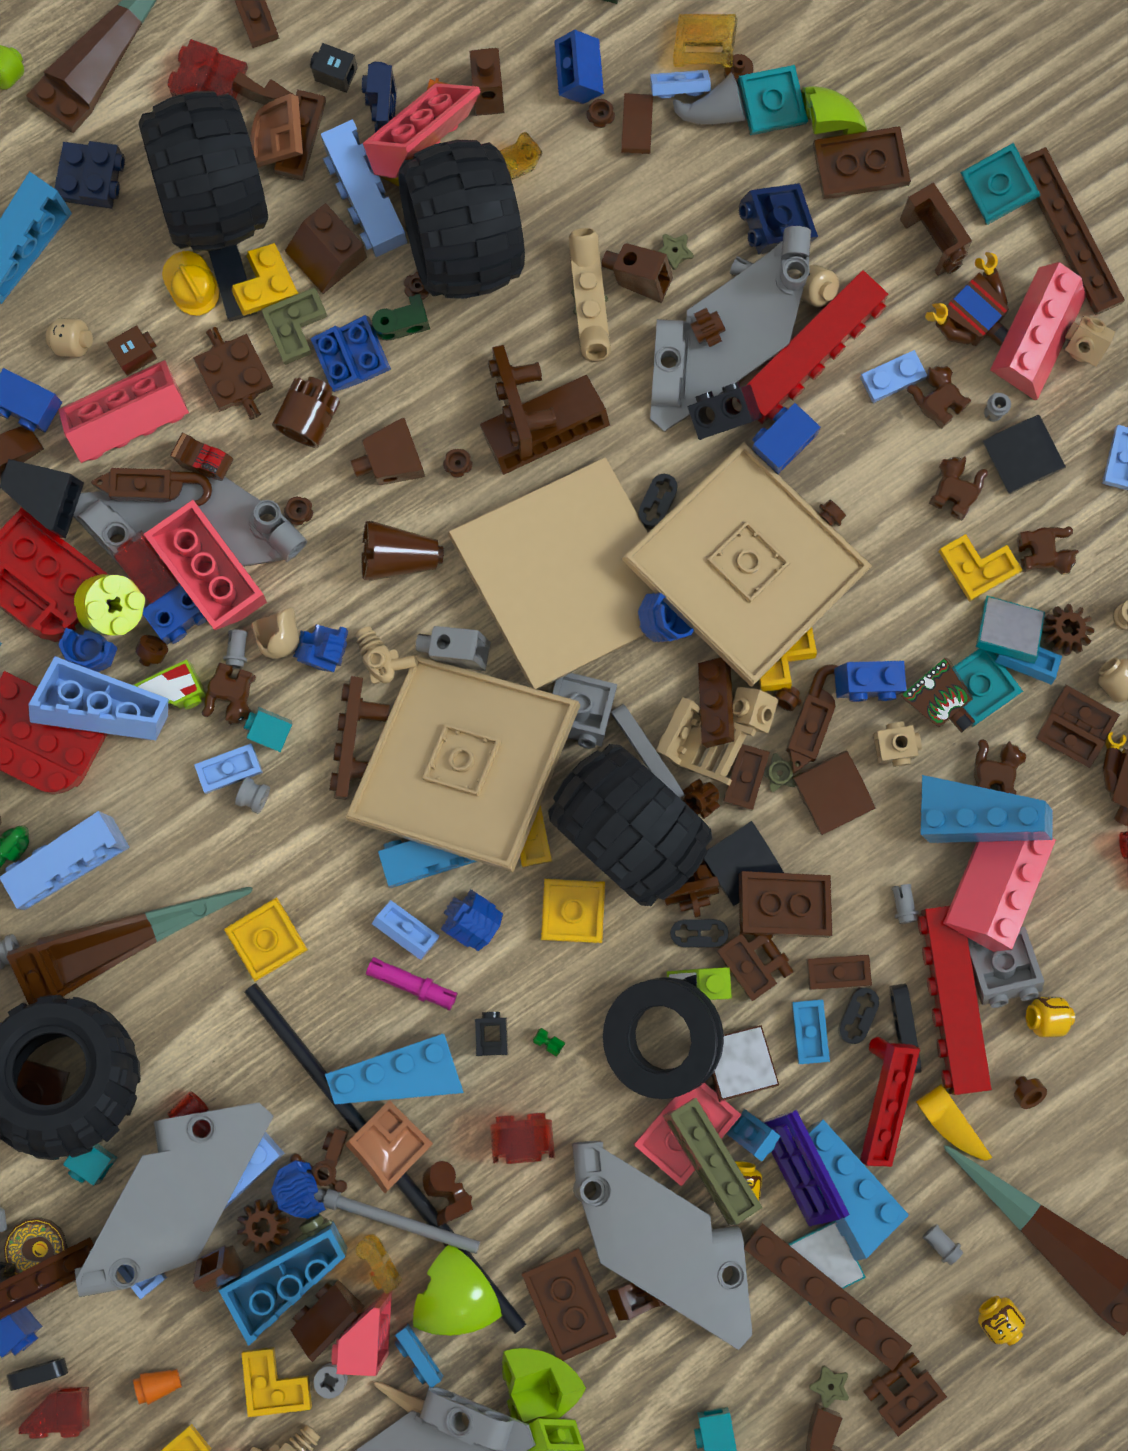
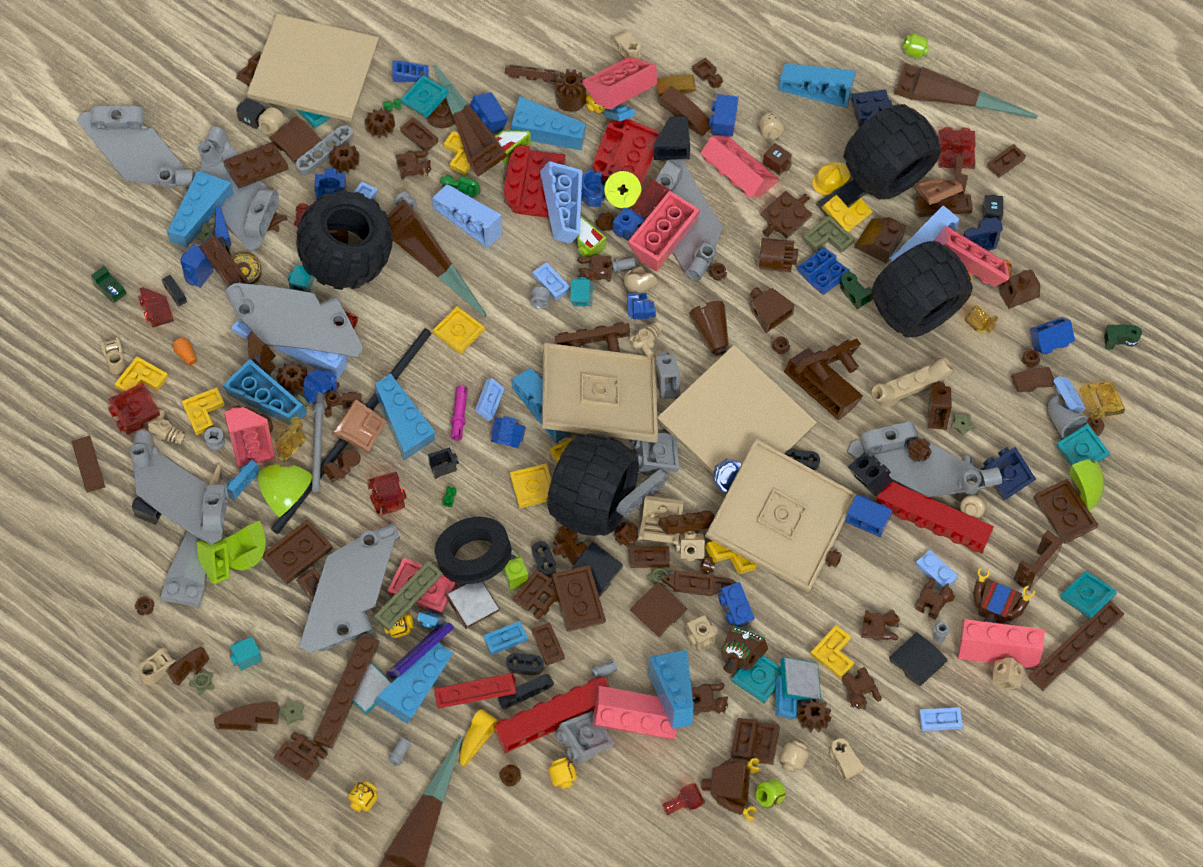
camera: 65 degrees right, 20 degrees down
(150, 484) = (702, 192): reddish brown plate -> none
(201, 457) = (728, 210): leg -> none

